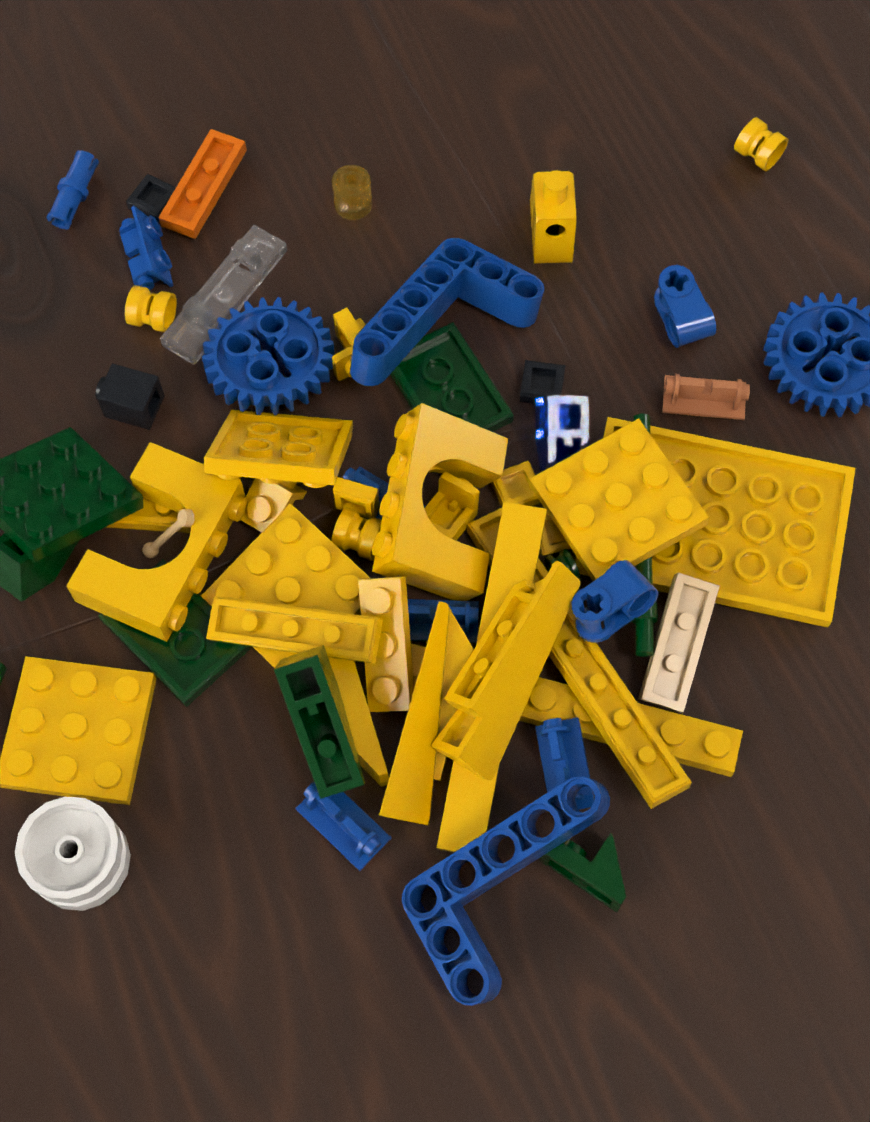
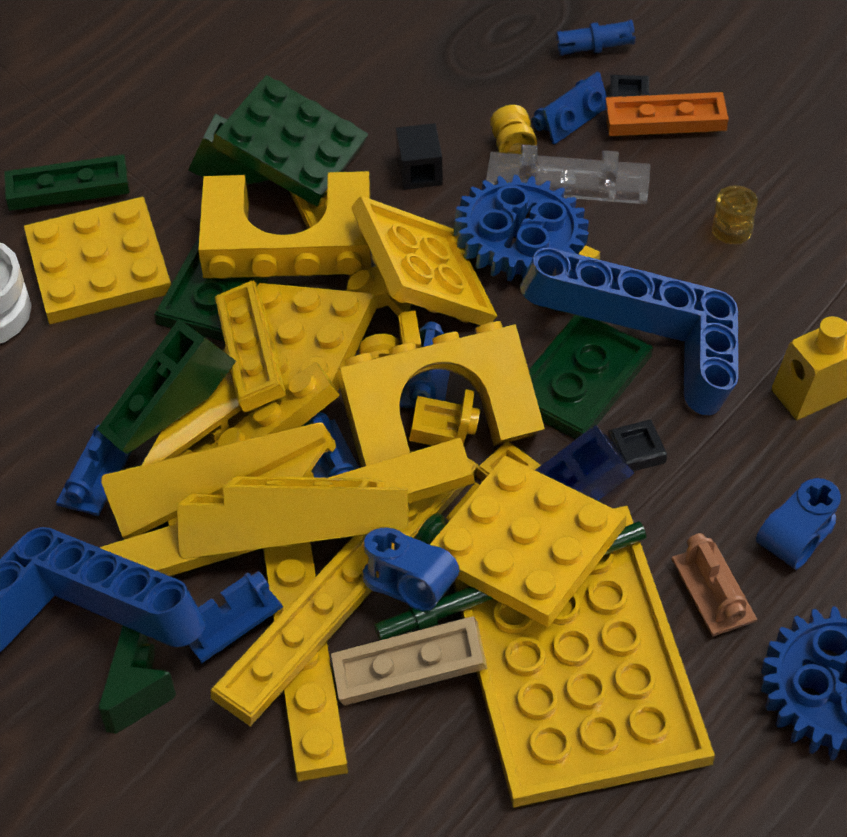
camera: 65 degrees right, 15 degrees down
(185, 519) = (302, 226): tan hinge -> none

